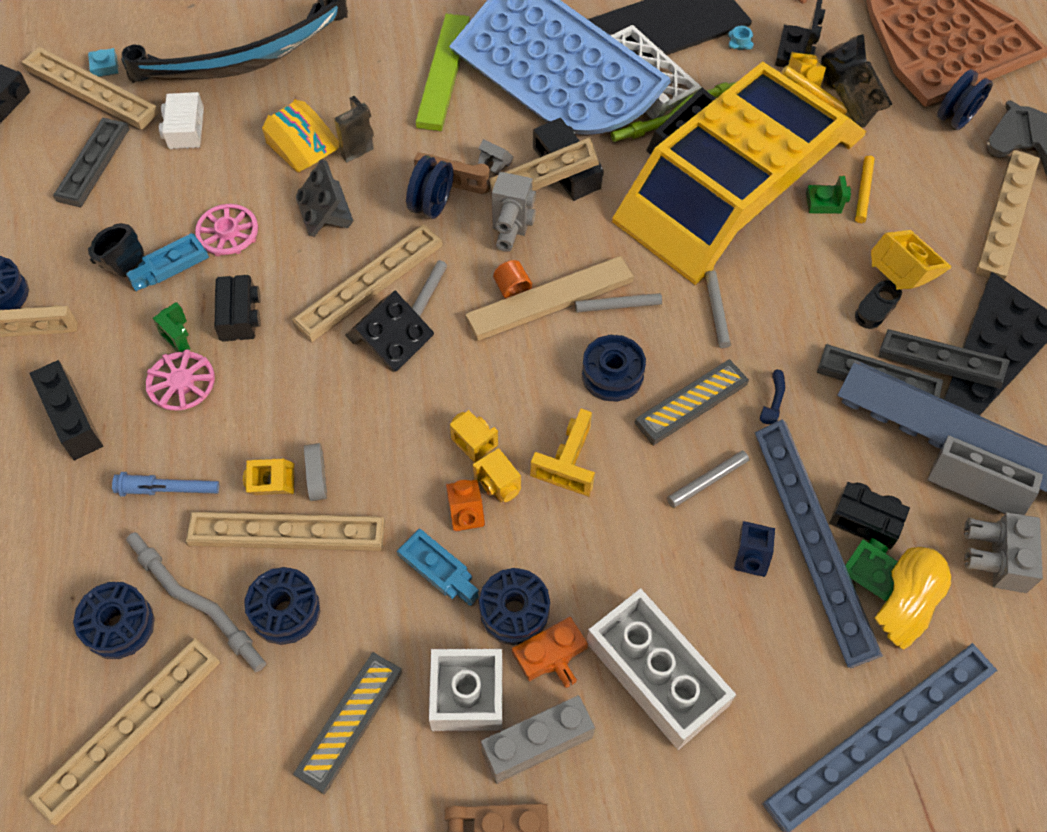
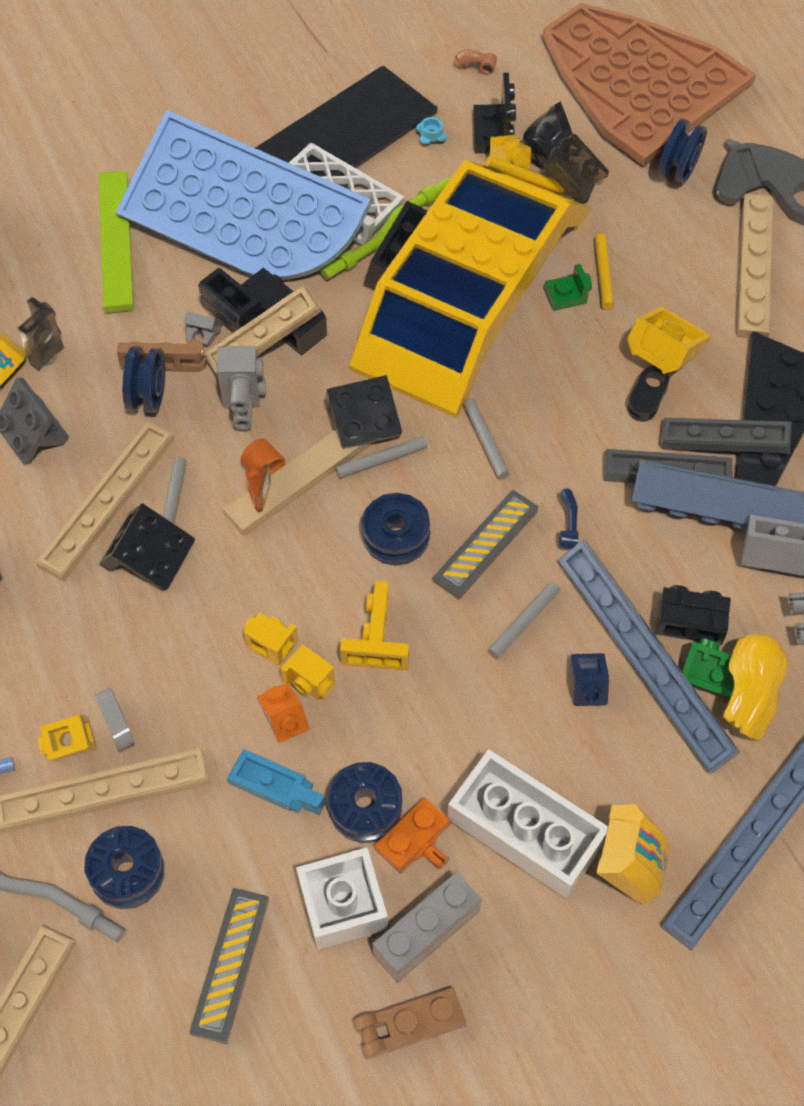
camera: 15 degrees left, 0 degrees up
(502, 299) = (258, 485): none -> clear orange slope
(522, 137) = (228, 299): none -> black brick
(613, 259) = (363, 412): none -> black bracket
(753, 726) = (634, 853): none -> yellow slope

